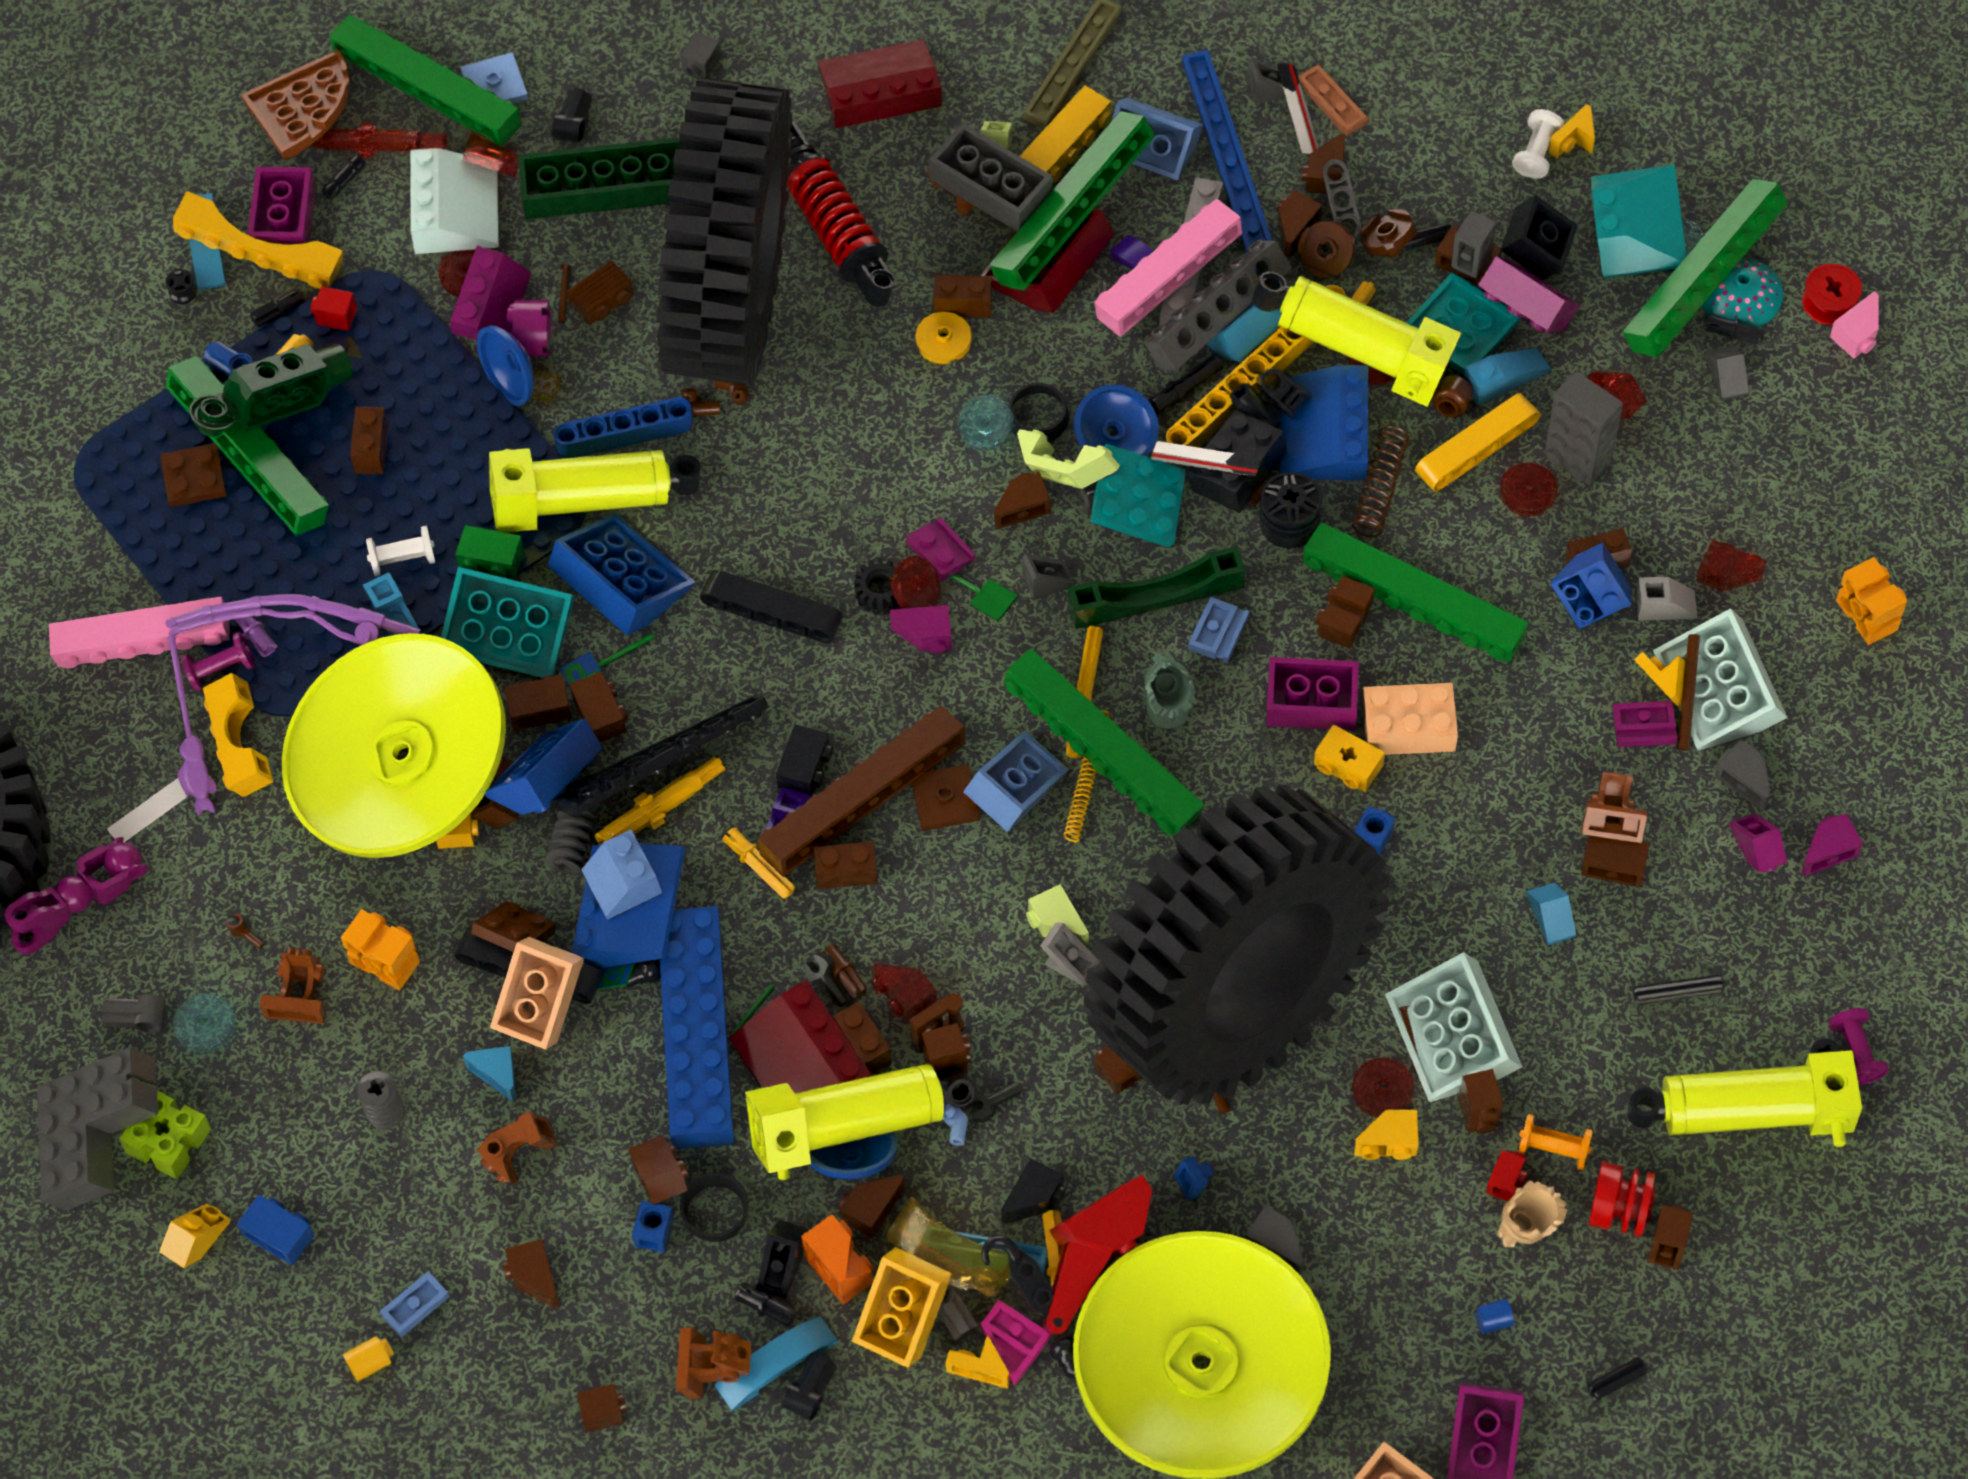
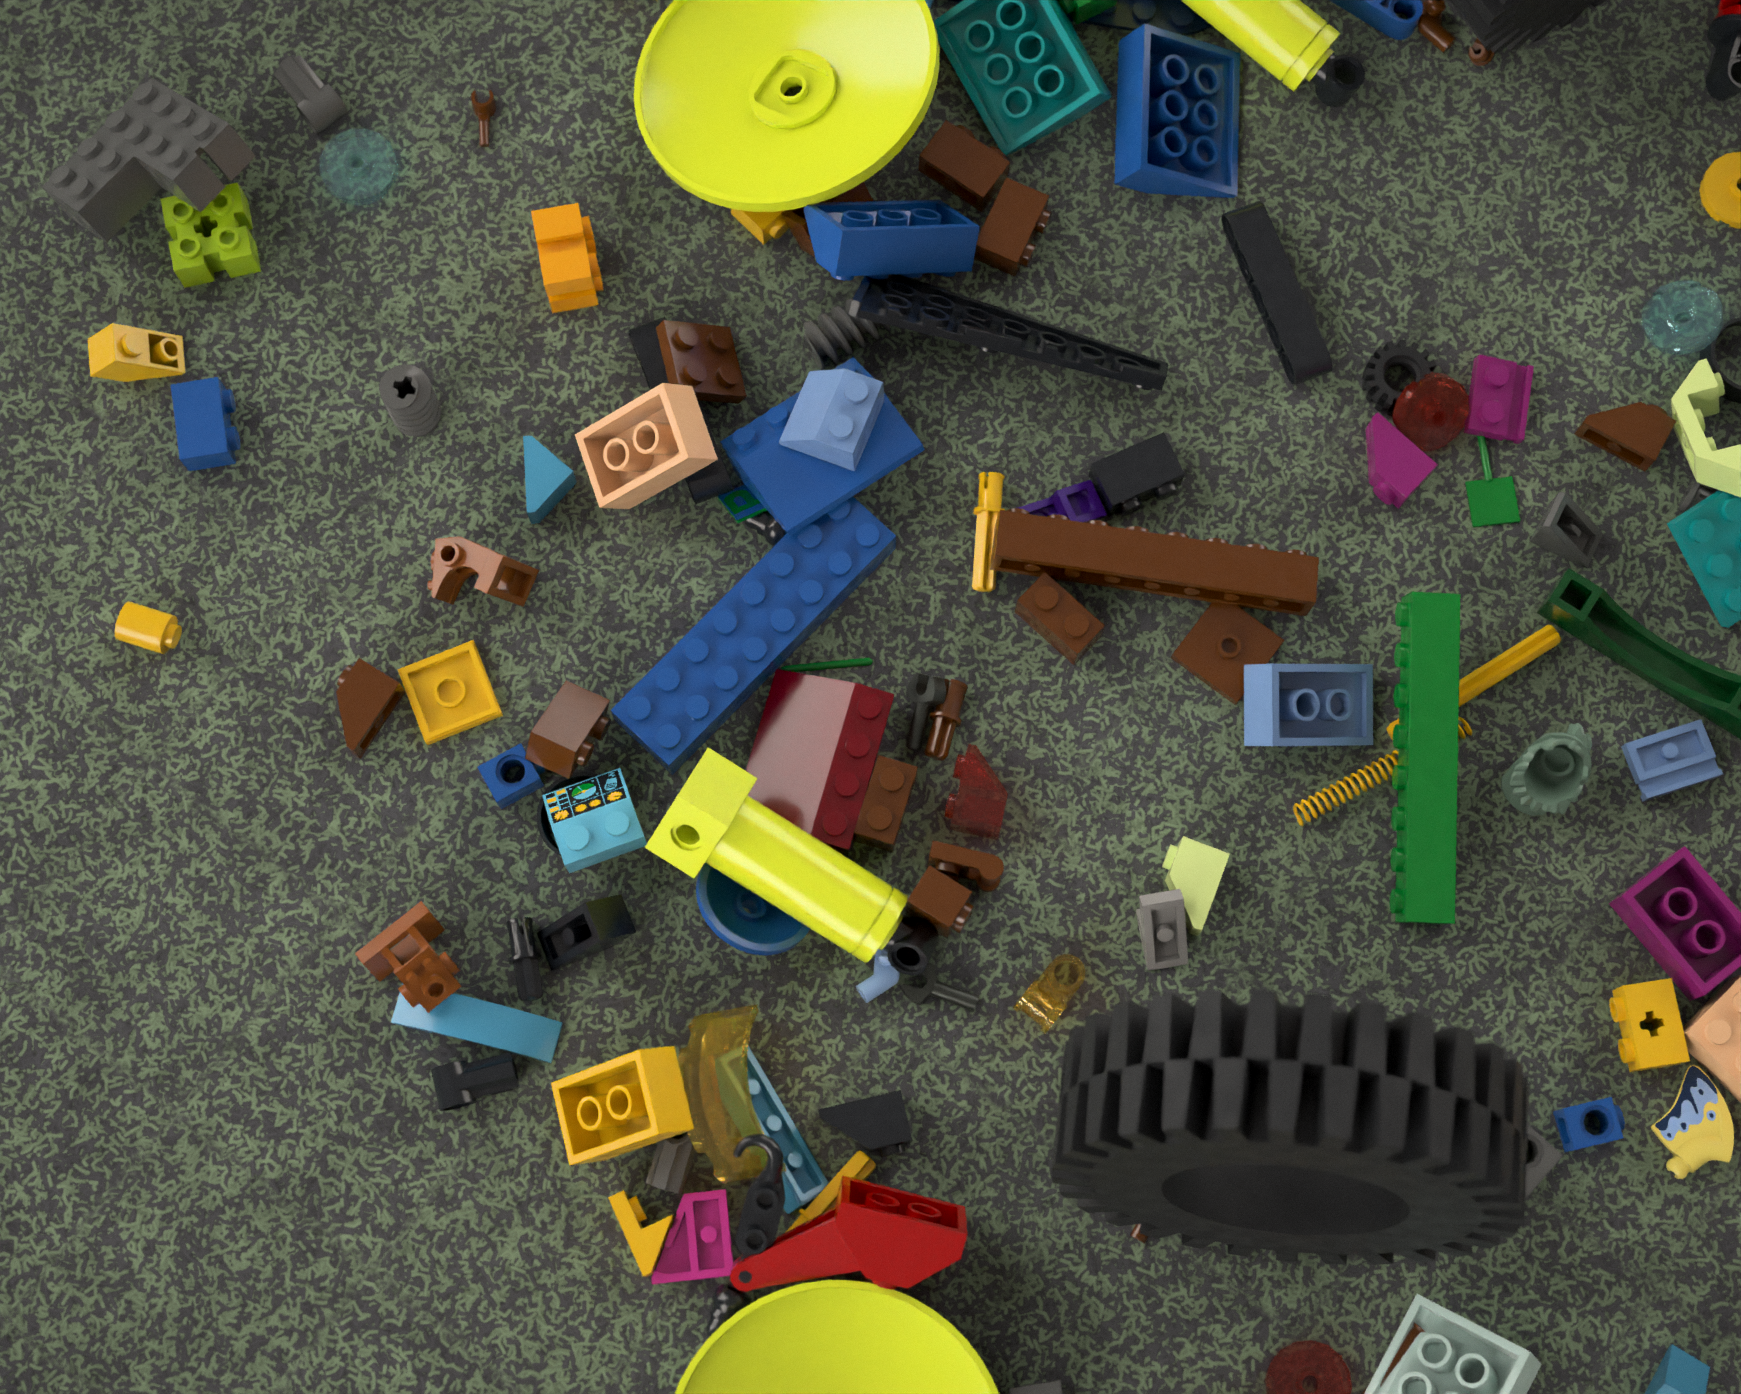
camera: 45 degrees right, 15 degrees up
(298, 967) = (441, 223): dark orange tile -> none
(414, 1304) = (240, 621): medium blue plate -> none
(570, 1223) = (450, 692): none -> yellow tile
(587, 666) = (1047, 177): piece -> none
(601, 1407) = (282, 895): reddish brown brick -> none
(651, 809) = (949, 377): yellow piece -> none
(725, 1194) = (594, 820): none -> medium azure slope
(832, 1257) = (625, 992): orange slope -> none
(871, 1203) = (717, 969): reddish brown slope -> none
(1050, 1043) = (1050, 993): none -> clear yellow piece
(1193, 1177) = (1030, 1272): blue tile -> none
(1423, 782) = (1696, 1125): none -> light yellow arm

